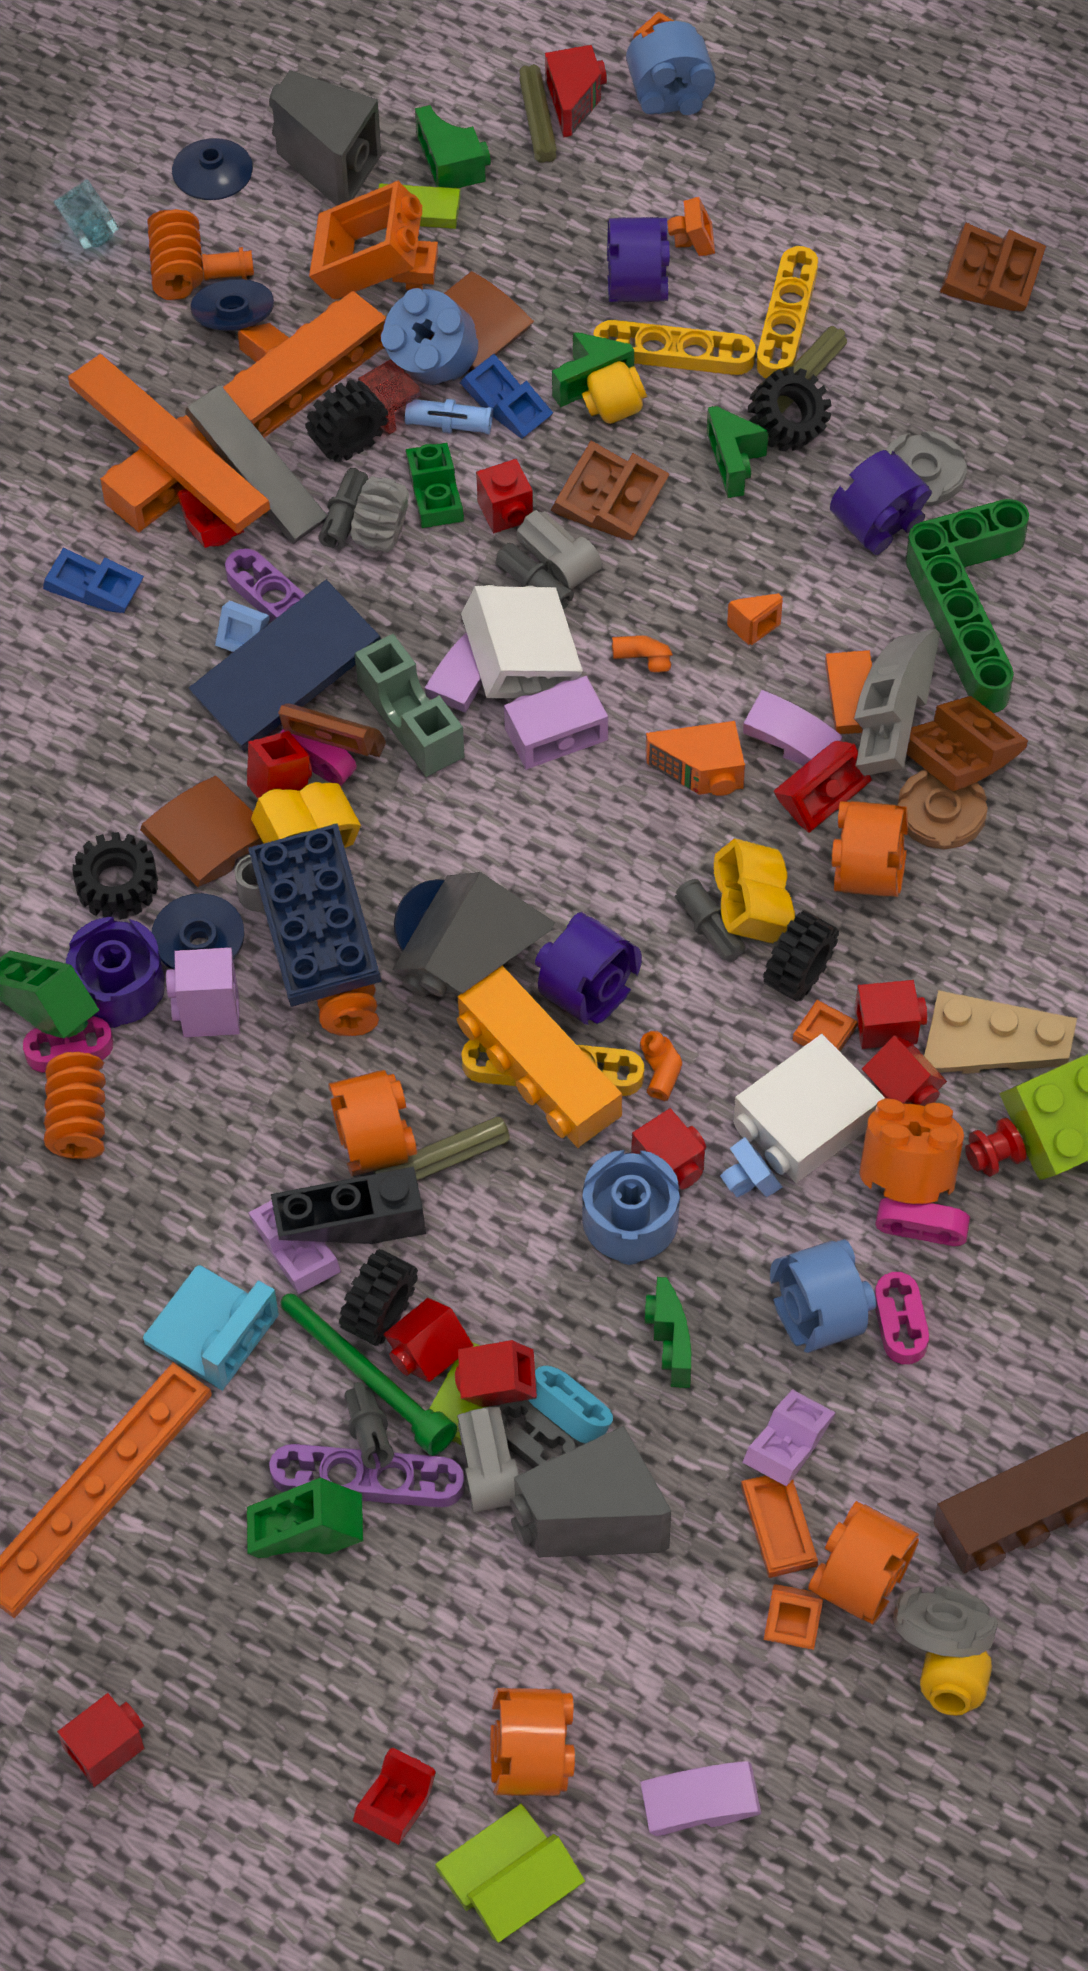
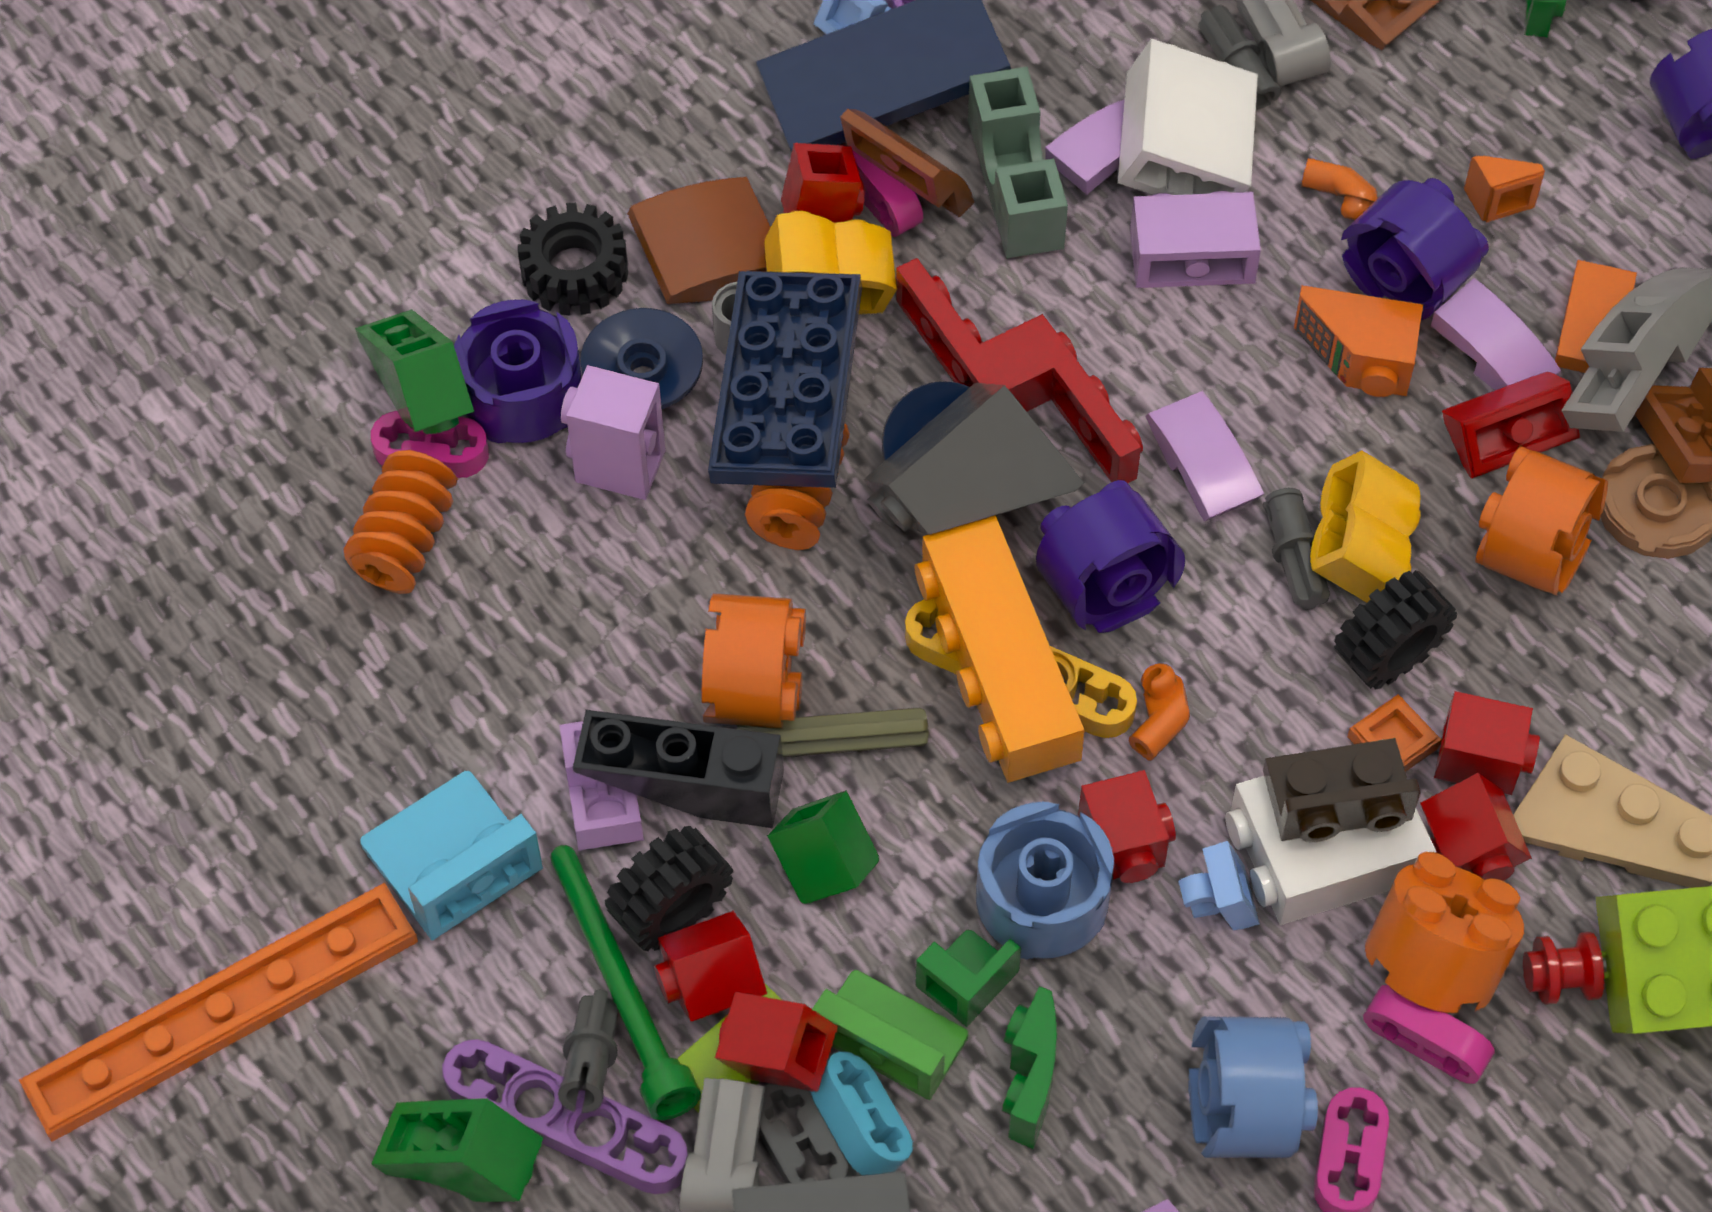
camera: 20 degrees right, 0 degrees up
(469, 1234) = (824, 847): none -> green panel
(470, 848) = (1026, 359): none -> red bracket
(568, 1343) = (892, 1032): none -> bright green panel
(601, 1287) = (966, 974): none -> green panel
(623, 873) = (1206, 454): none -> lavender slope
(712, 680) = (1413, 245): none -> dark purple brick
(807, 1077) = (1340, 790): none -> dark brown bracket

